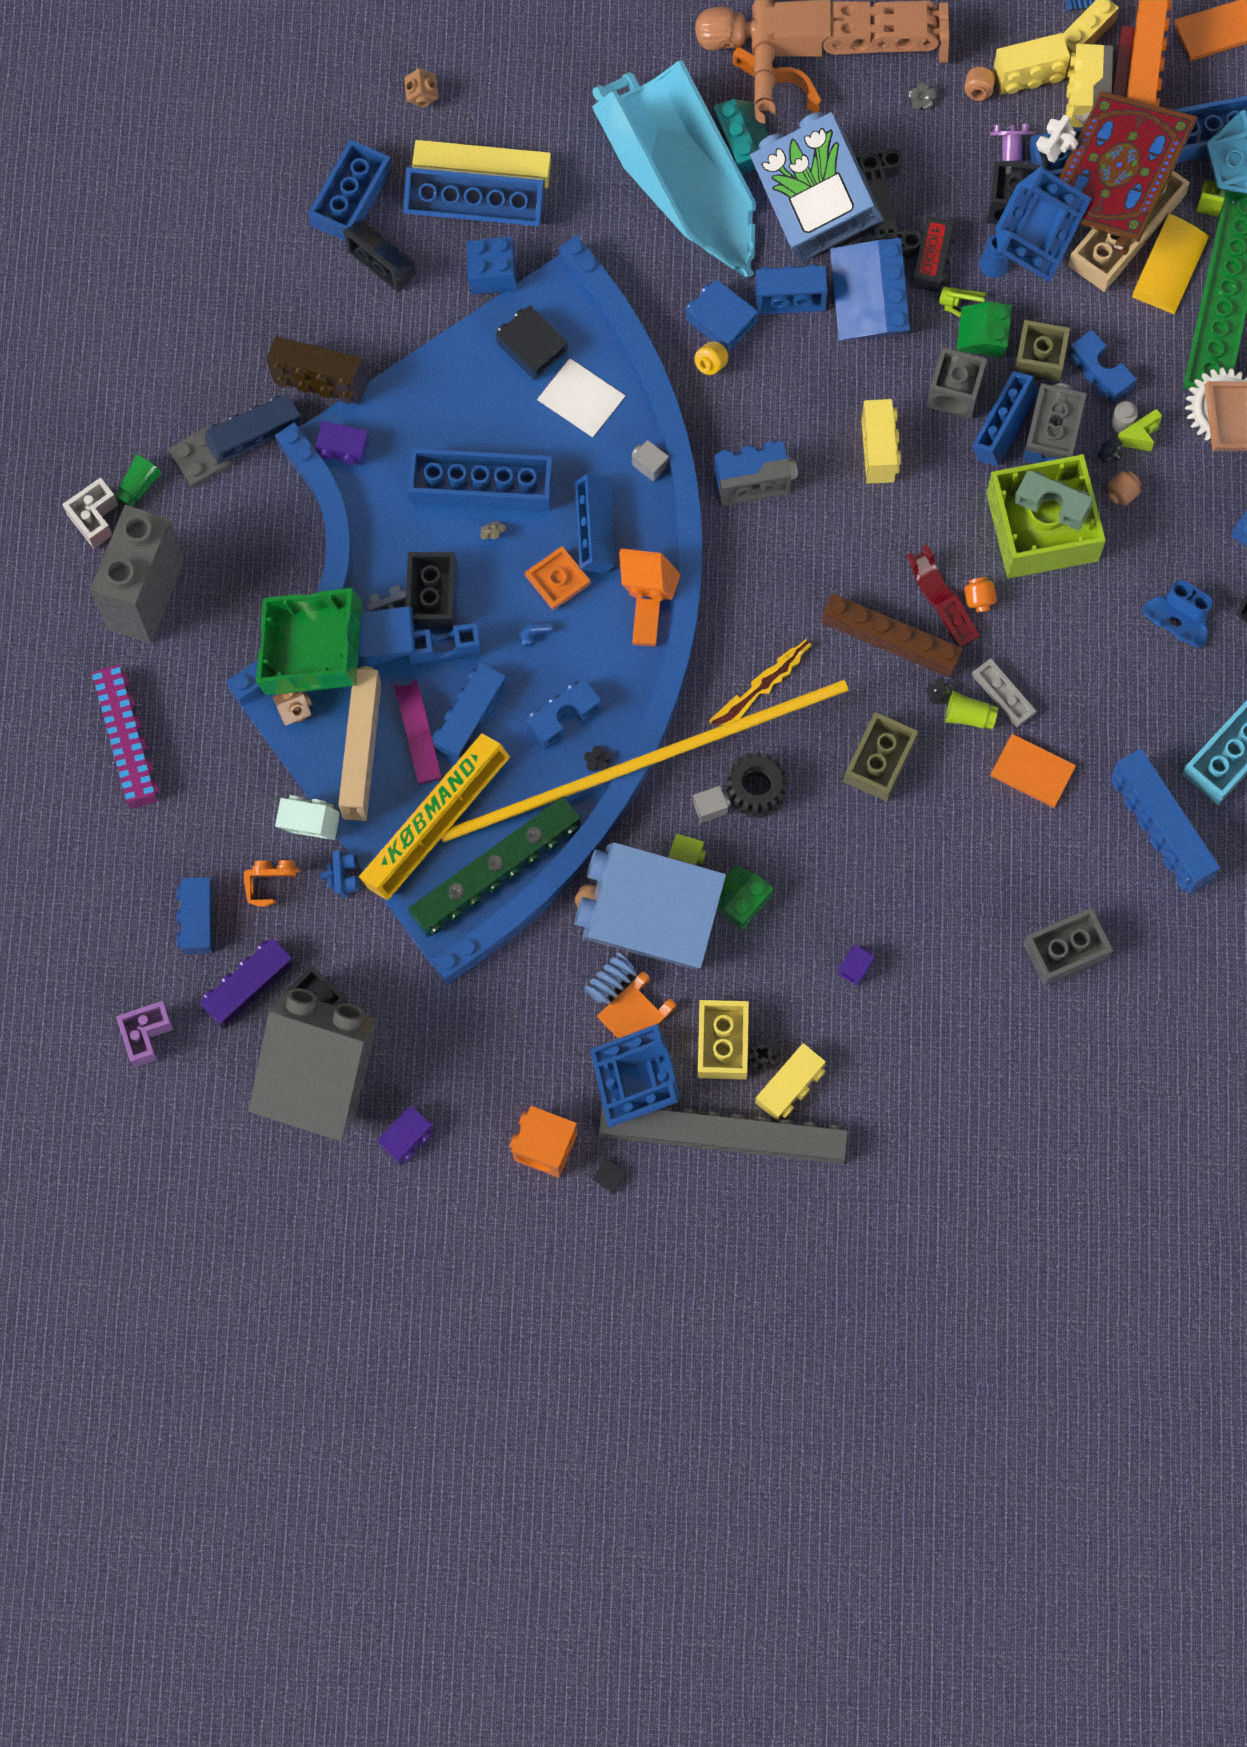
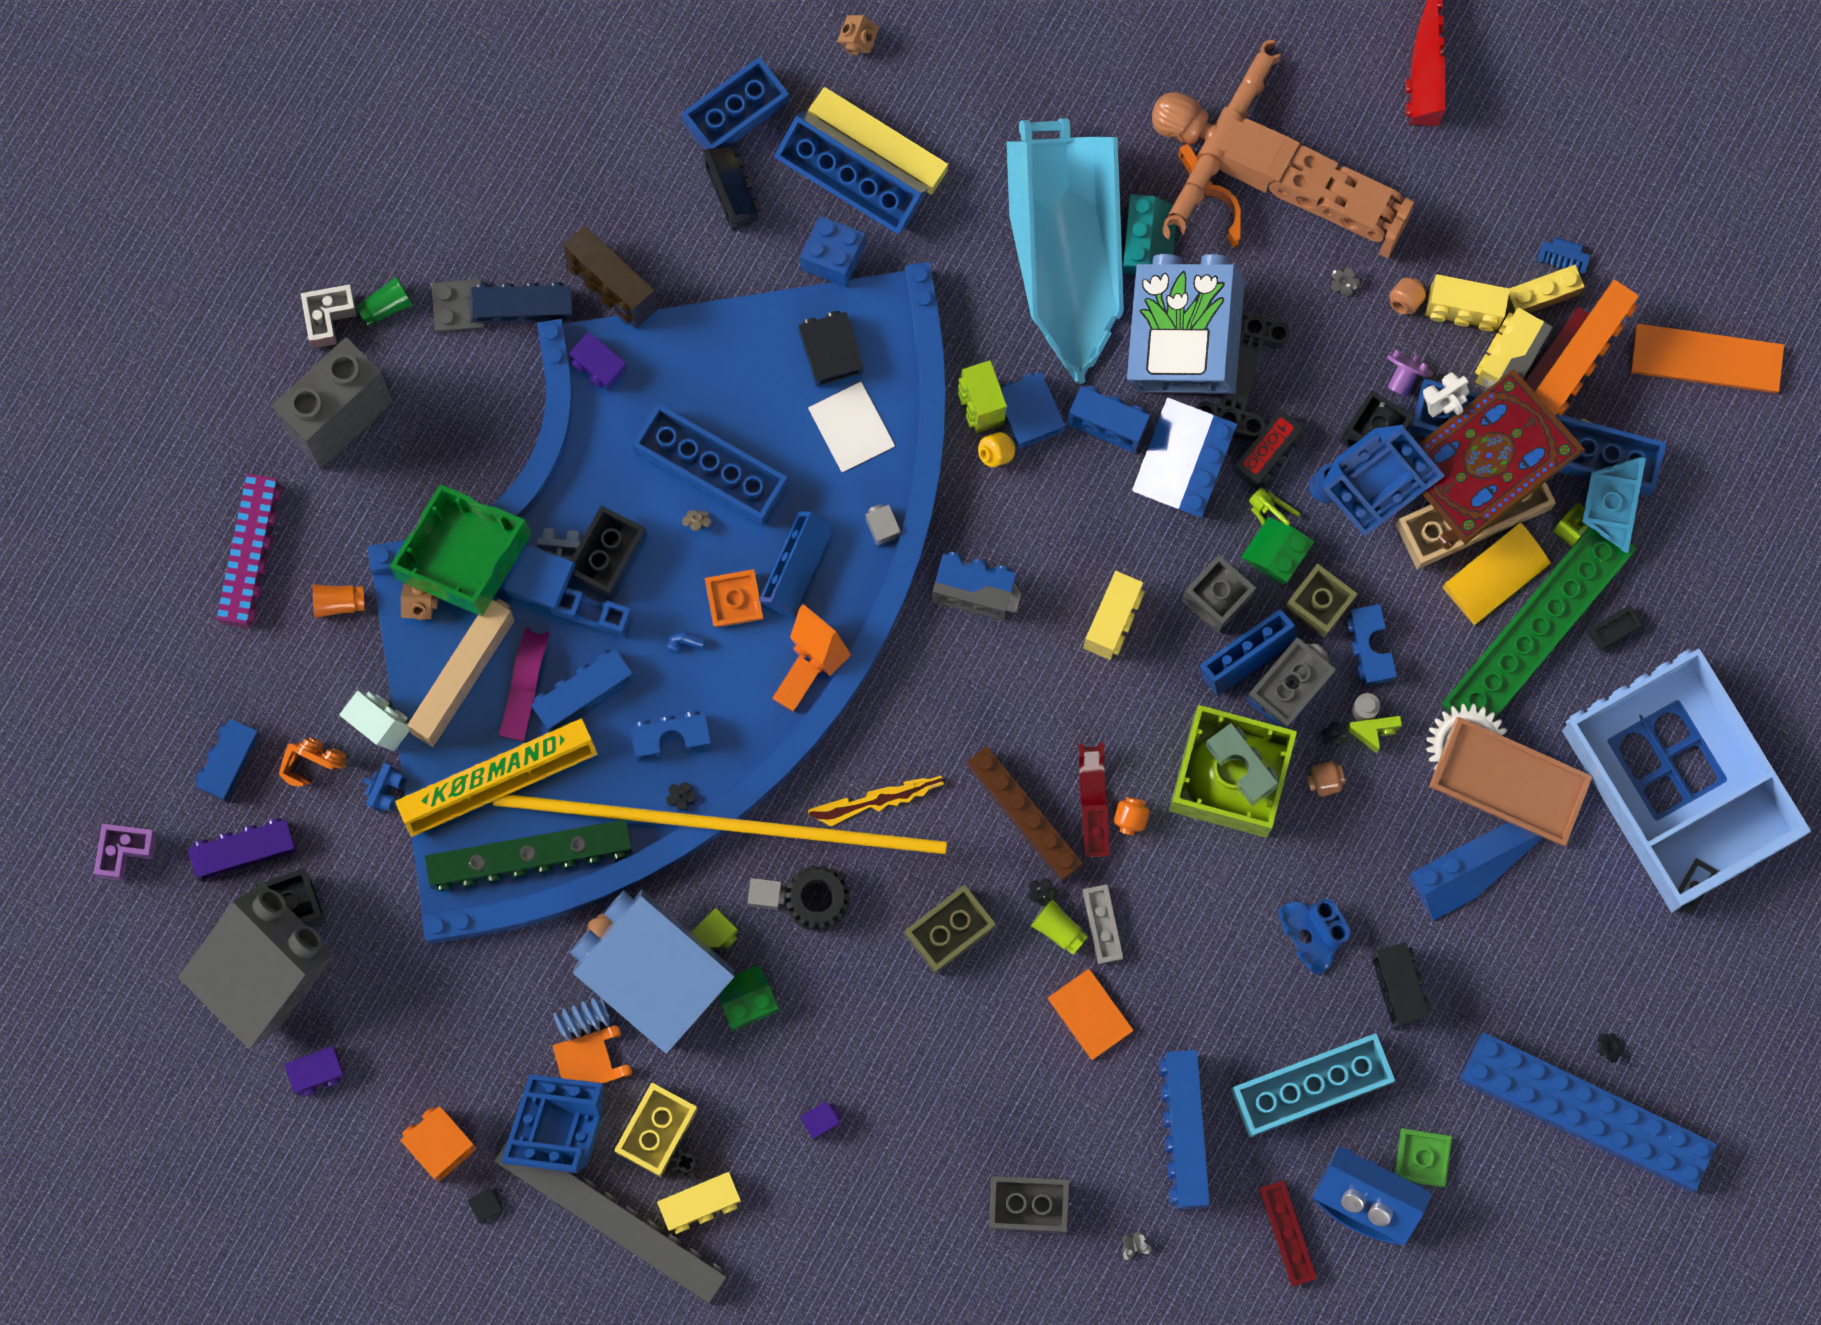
camera: 20 degrees right, 5 degrees up
(221, 739) = (337, 599): none -> orange plant
(679, 318) = (982, 397): none -> lime brick
(1171, 937) = (1135, 1244): none -> dark grey piece

